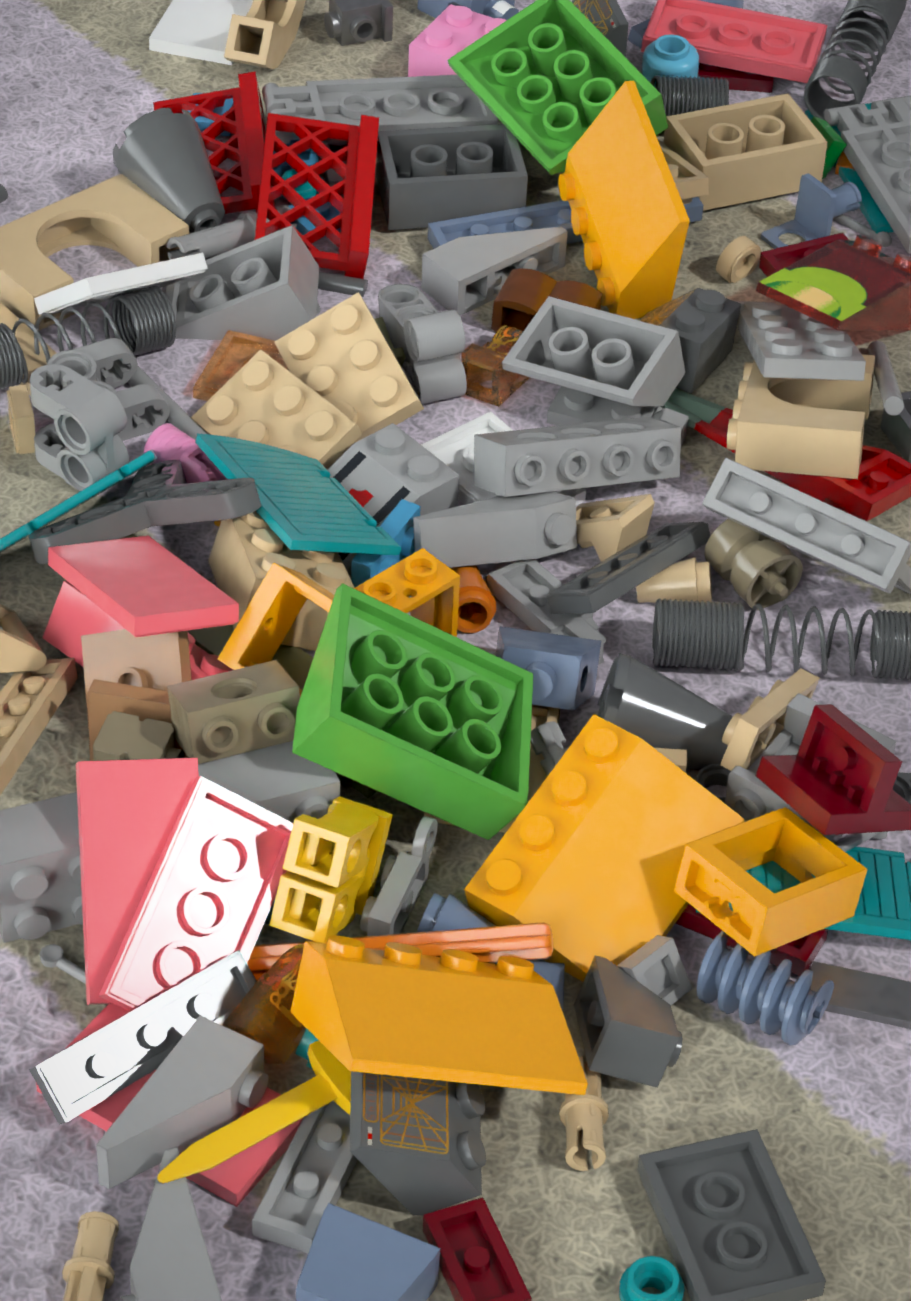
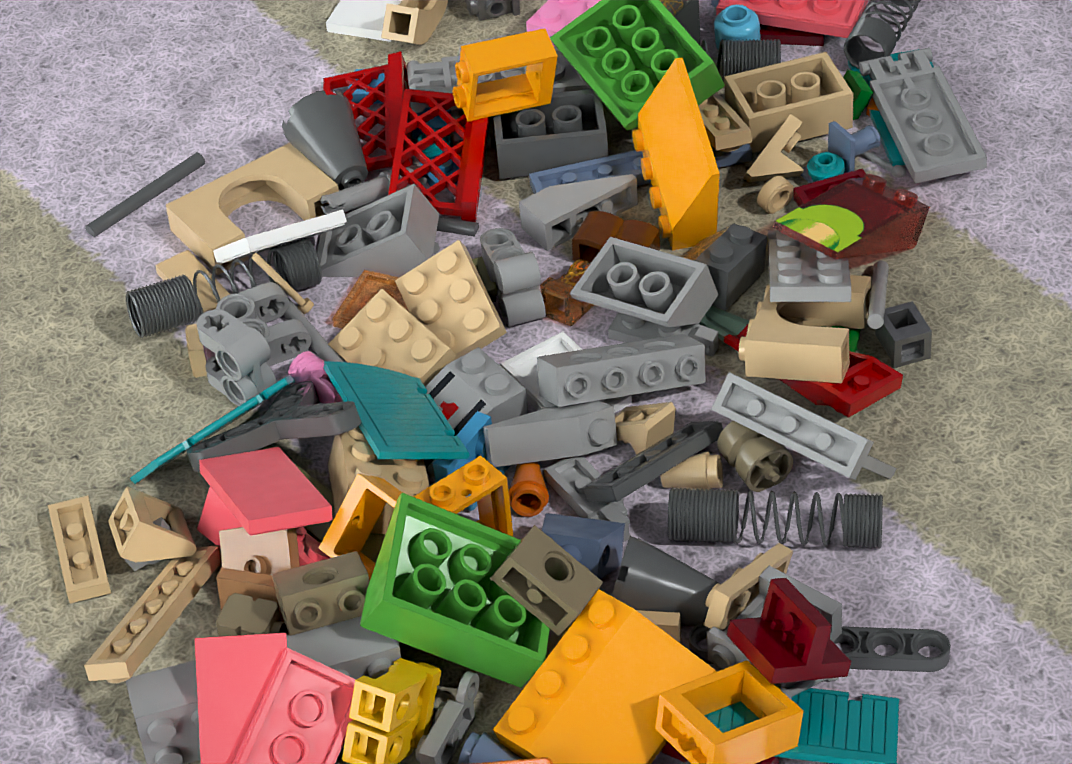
camera: 10 degrees right, 0 degrees up
(154, 370) = (304, 305): none -> tan piece
(404, 124) = (510, 93): none -> light orange window
(526, 701) = (546, 580): none -> dark tan brick
(732, 217) = (771, 160): none -> tan slope
(796, 228) = (825, 166): none -> teal plate

